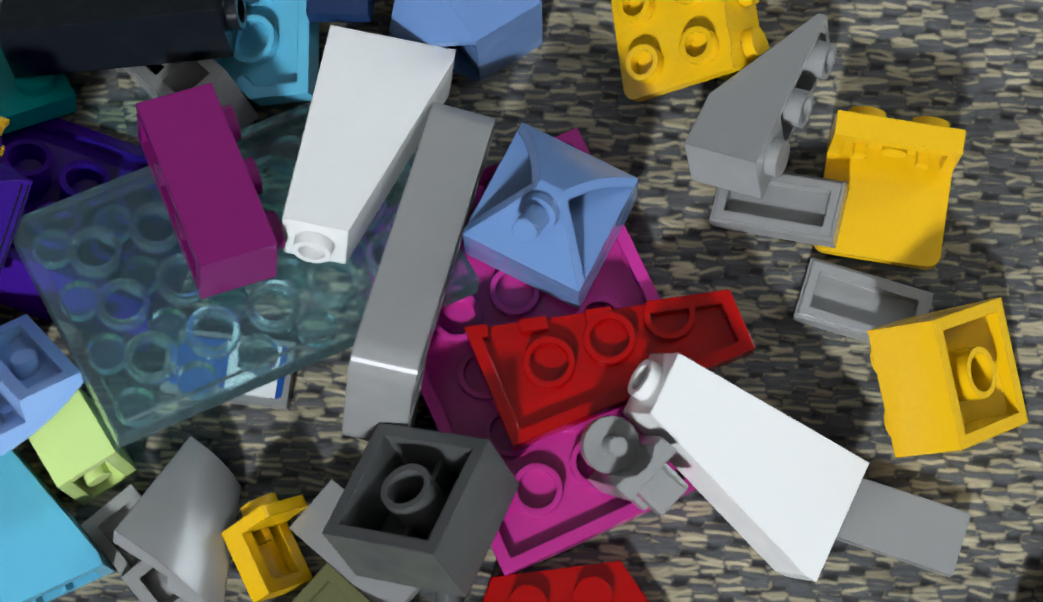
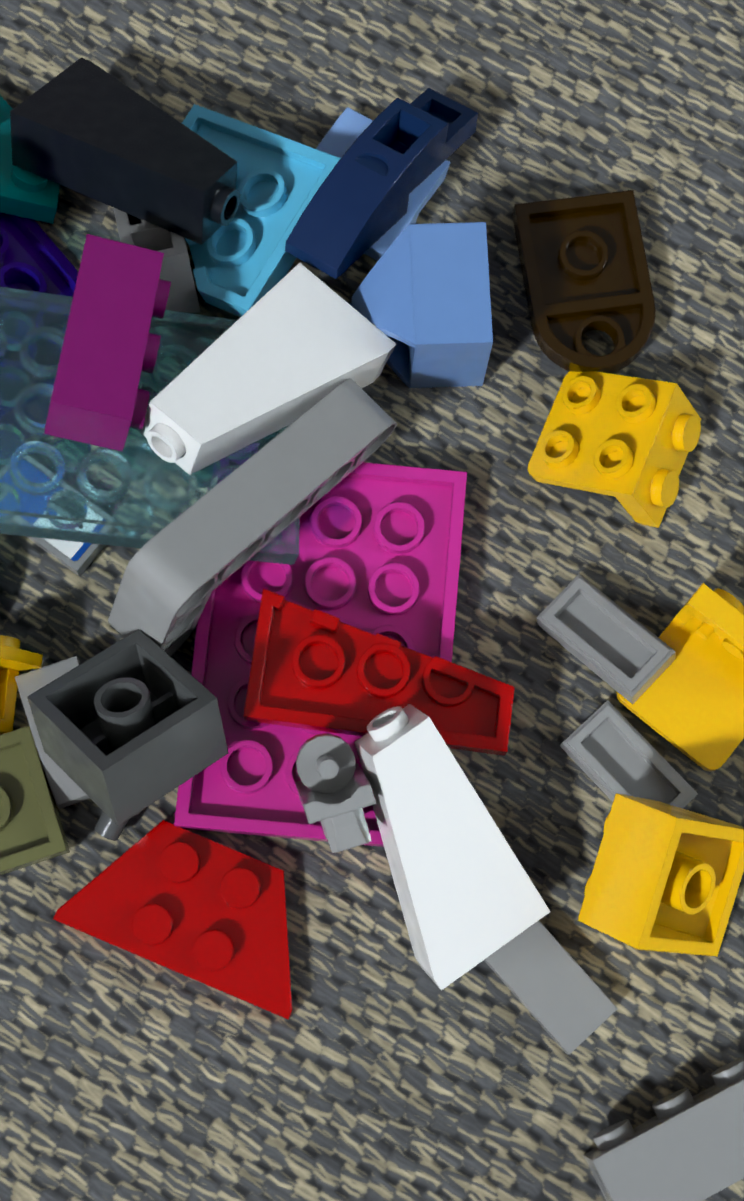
camera: 20 degrees right, 0 degrees up
(550, 215) = (395, 533): medium blue piece -> none
(752, 116) = (626, 547): light grey slope -> none

